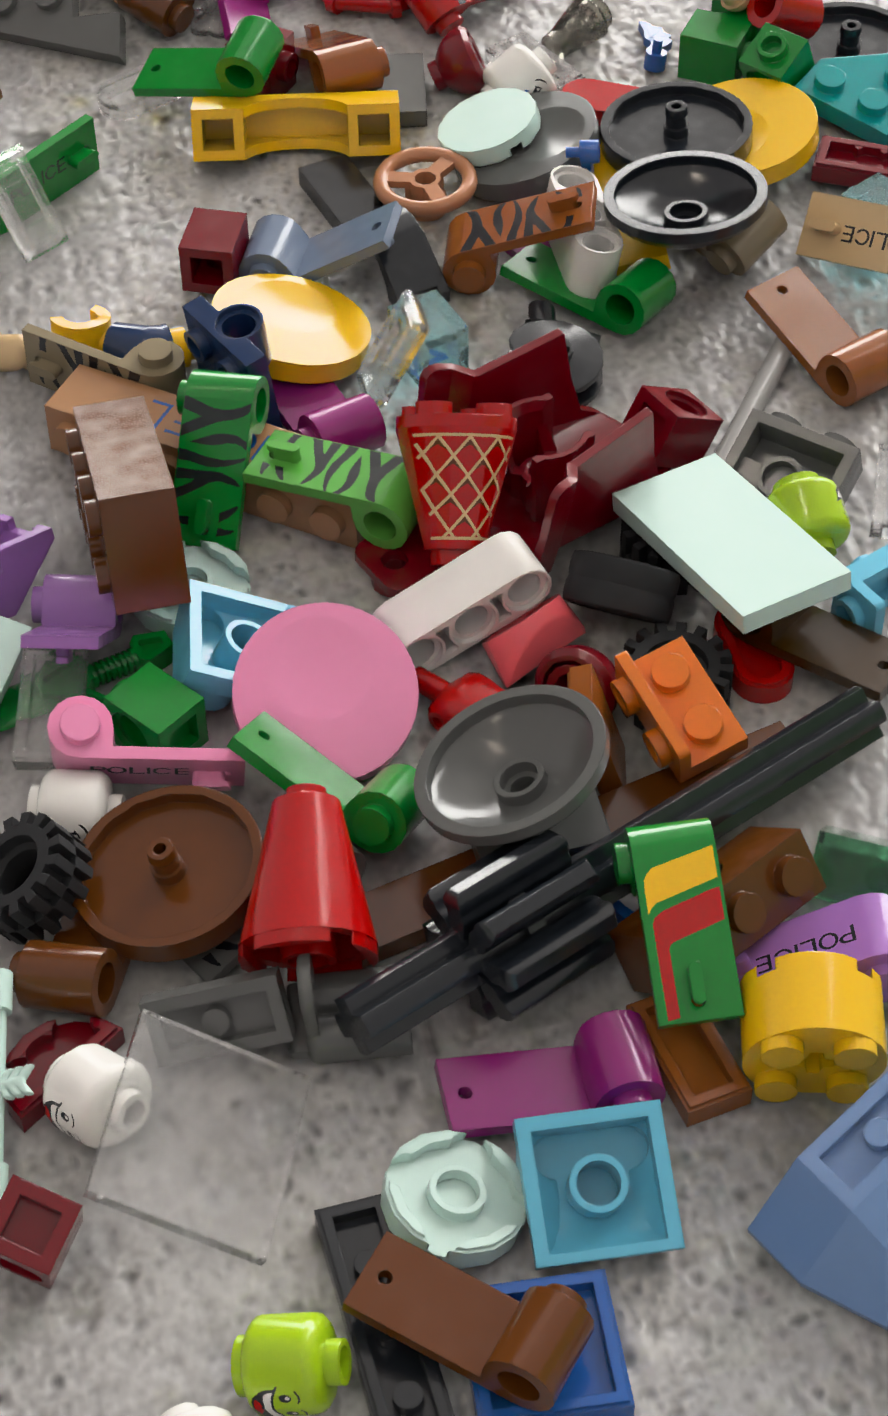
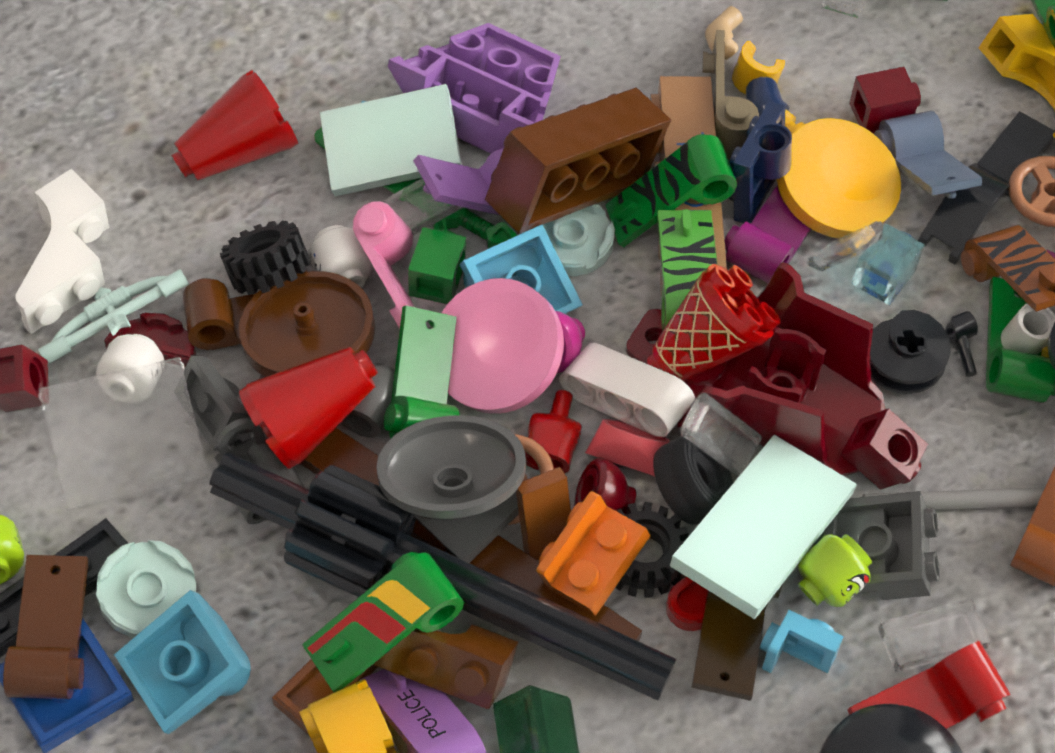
camera: 60 degrees right, 10 degrees up
(592, 527) = (720, 434): none -> clear tile
(603, 1068) = (256, 608): magenta door -> none

